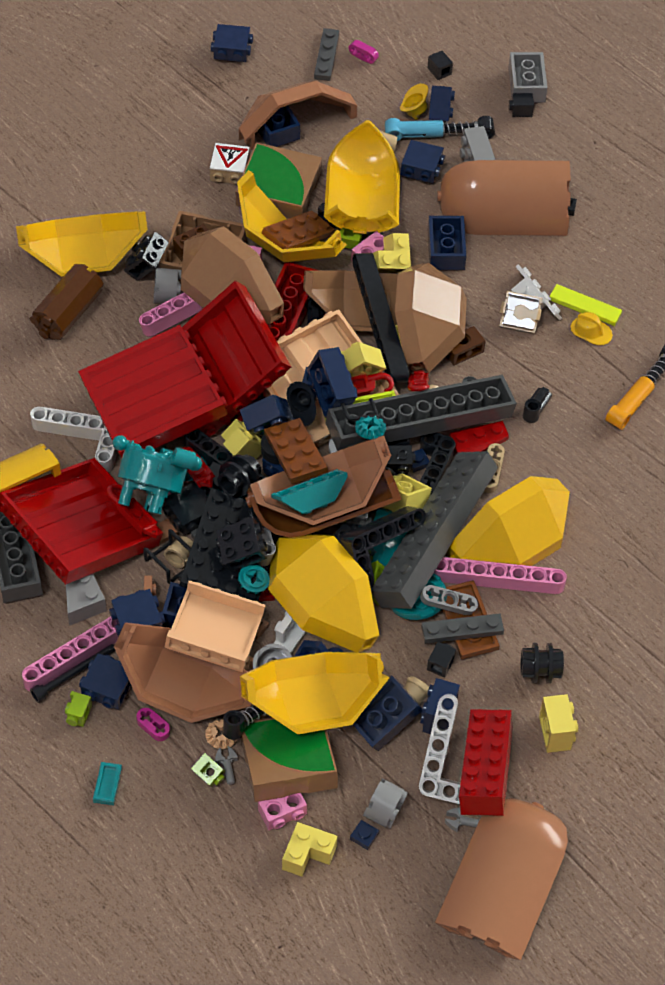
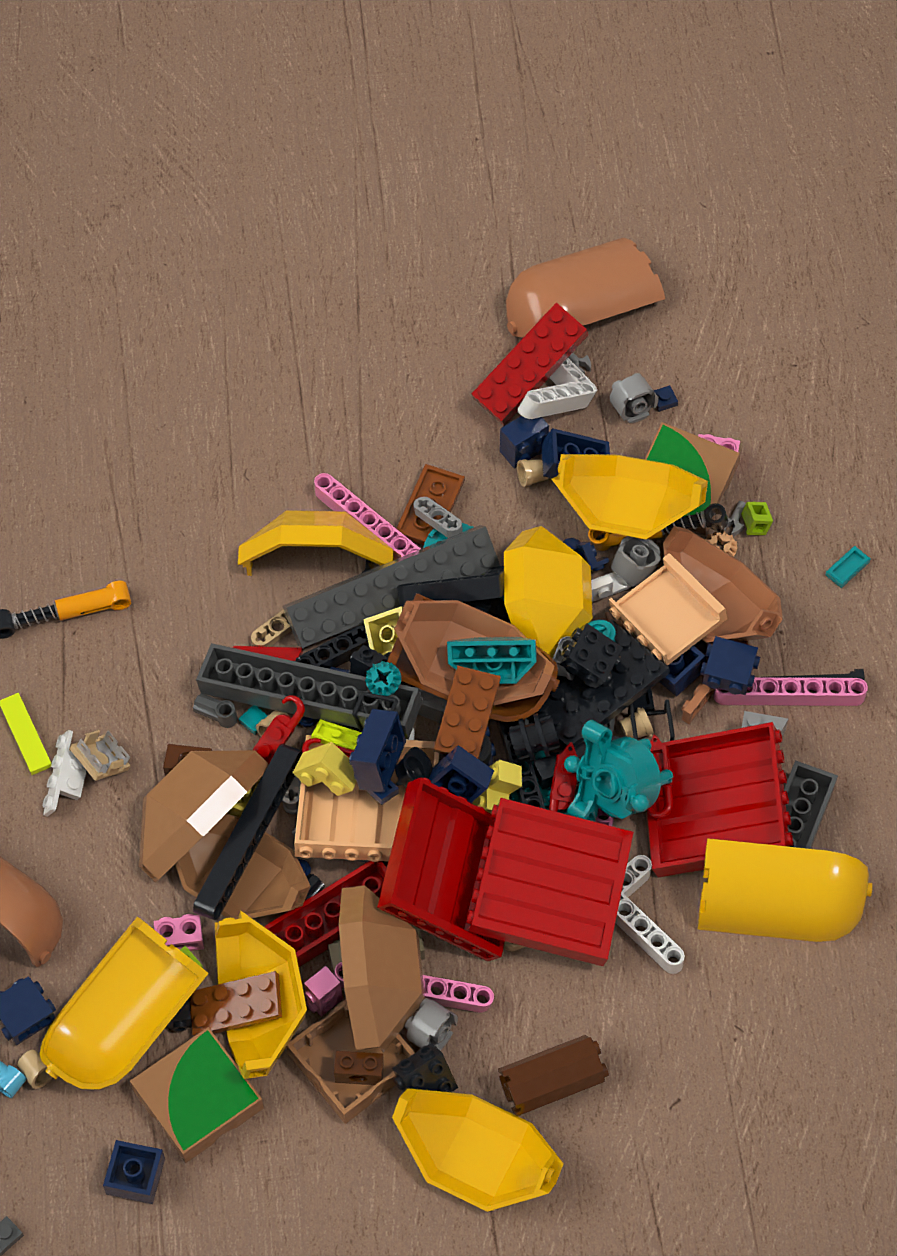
camera: 140 degrees left, 5 degrees up
(78, 709) = (832, 638): lime brick -> none
(106, 682) = (792, 644): dark blue brick -> none
(155, 720) = (778, 587): dark pink beam -> none
(228, 162) = (230, 1158): piece -> none
(269, 103) = (100, 1180): nougat panel -> none
(305, 844) = (719, 412): light yellow brick -> none
(395, 254) = (168, 898): light yellow brick -> none
(441, 659) = (483, 485): black brick -> none
(447, 242) = (95, 886): dark blue brick -> none
(462, 628) = (445, 493): dark grey plate -> none
(536, 404) = (177, 657): black piece -> none
(542, 663) = (406, 421): black piece -> none
(558, 723) = (439, 368): light yellow brick -> none
(591, 329) = (46, 706): yellow piece -> none

